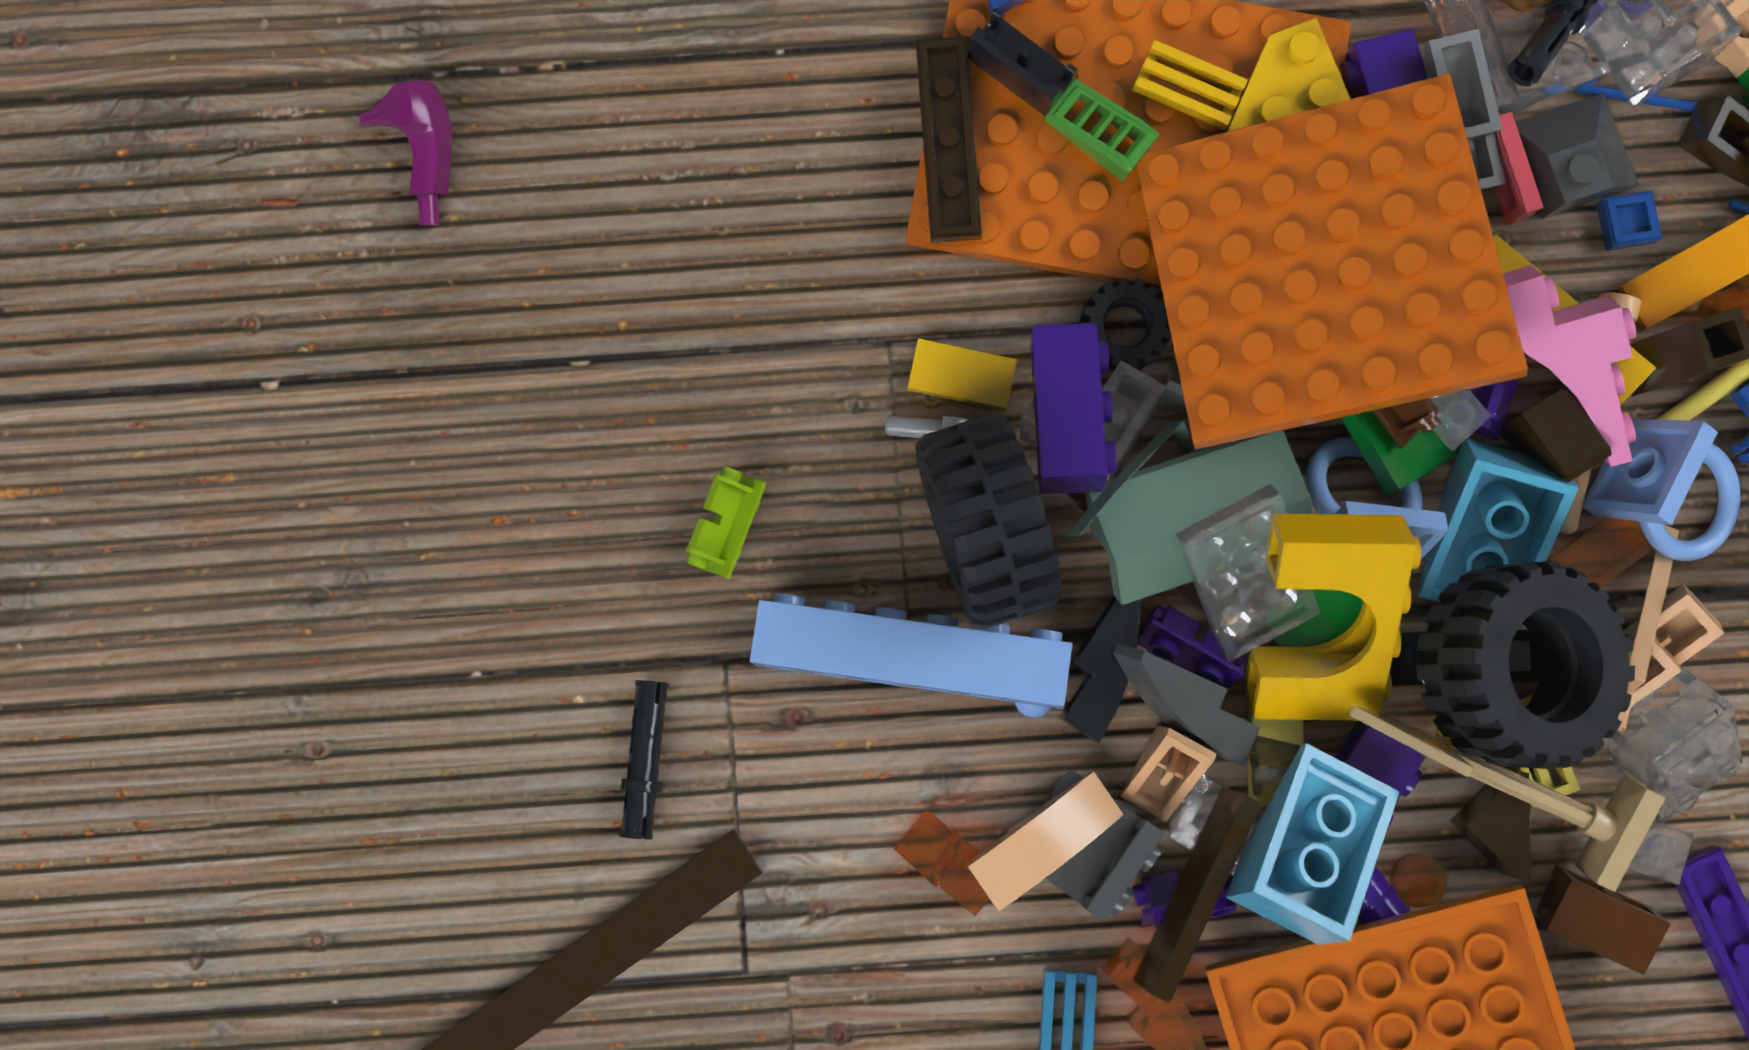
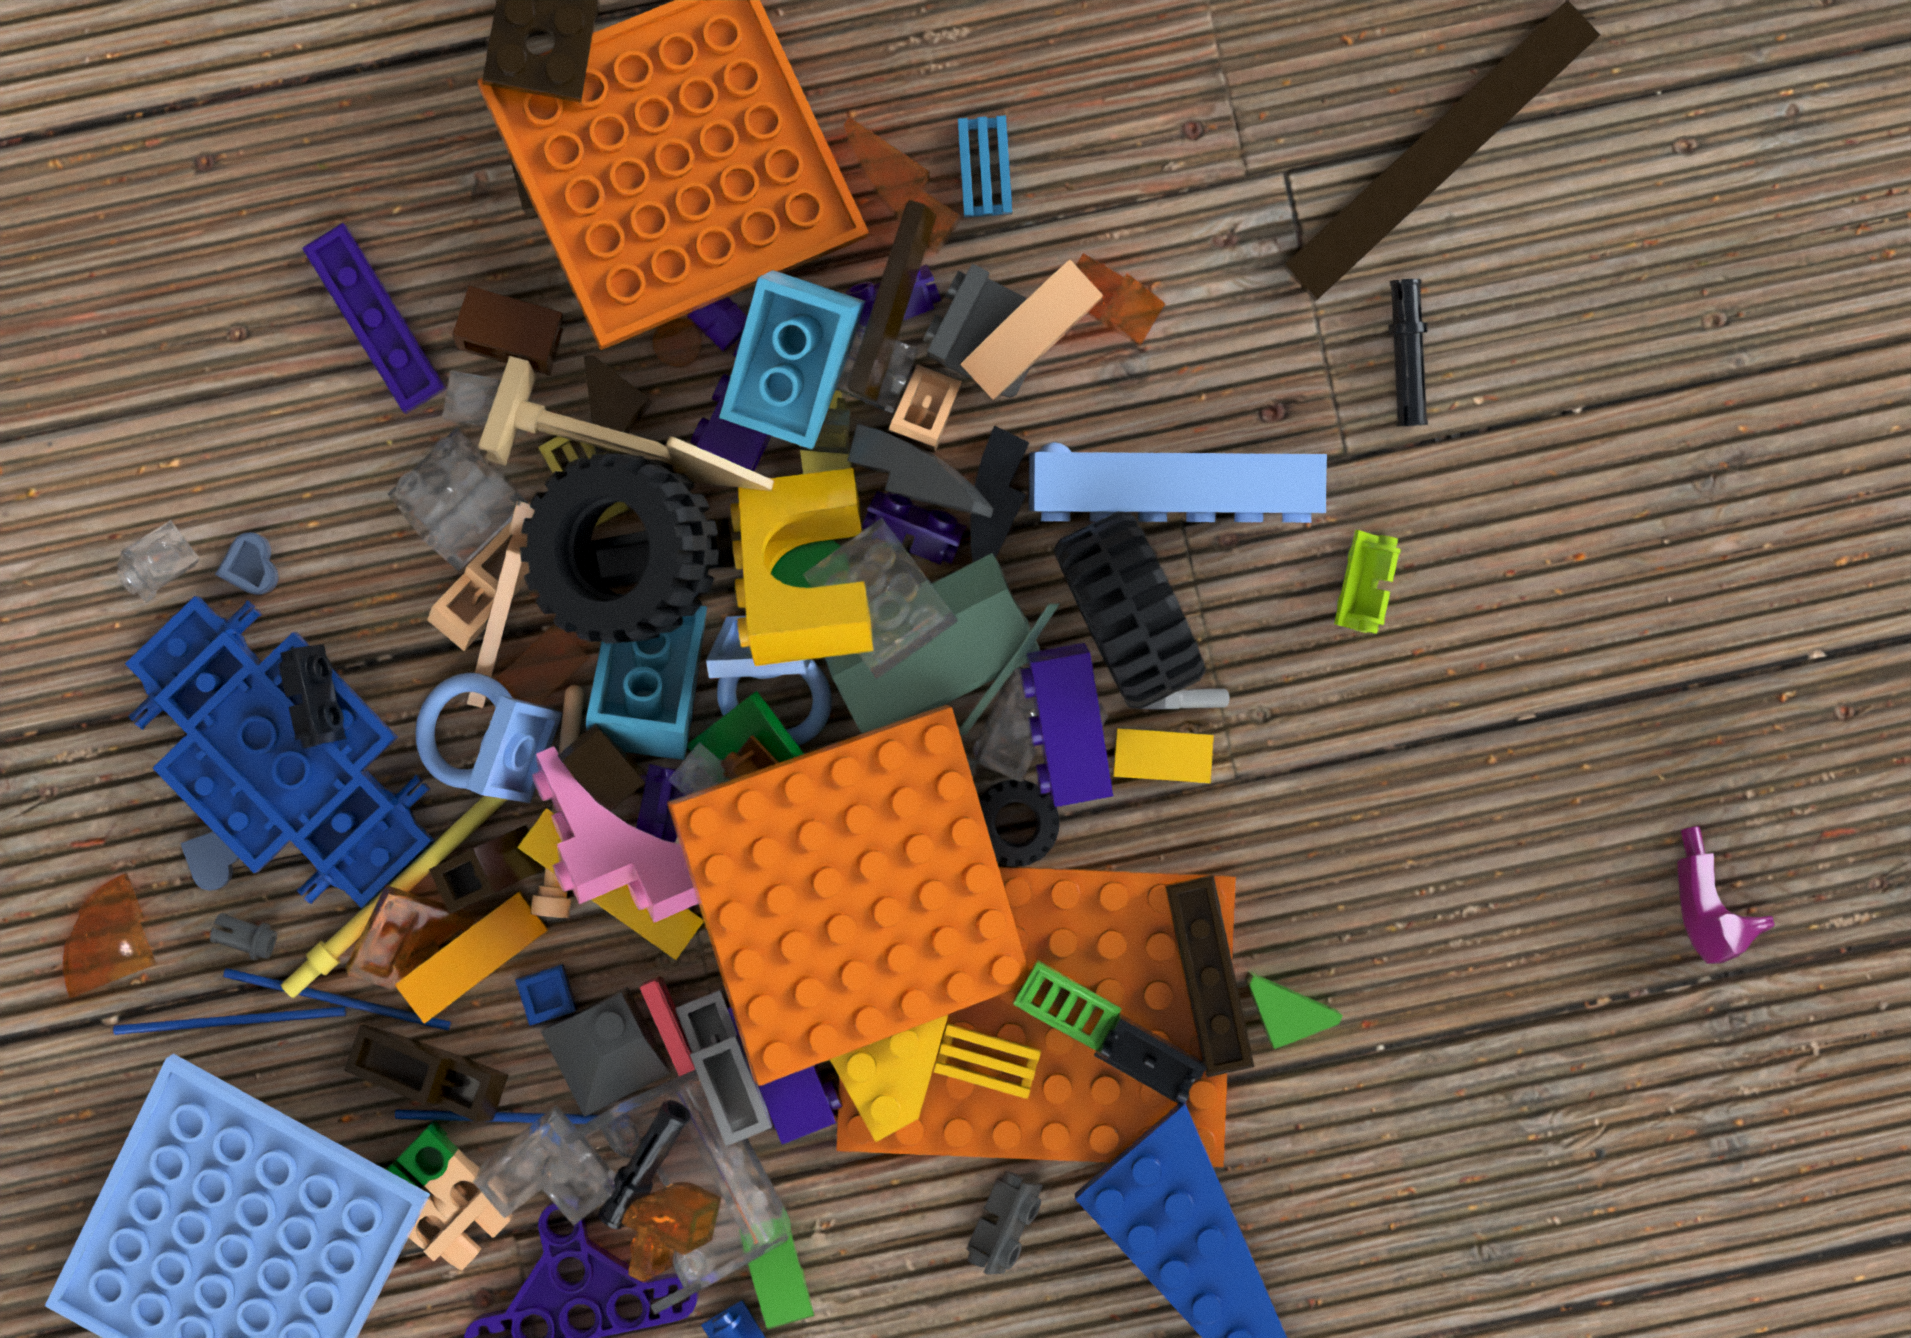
camera: 175 degrees right, 5 degrees up
(870, 94) = (1288, 1014): none -> bright green slope

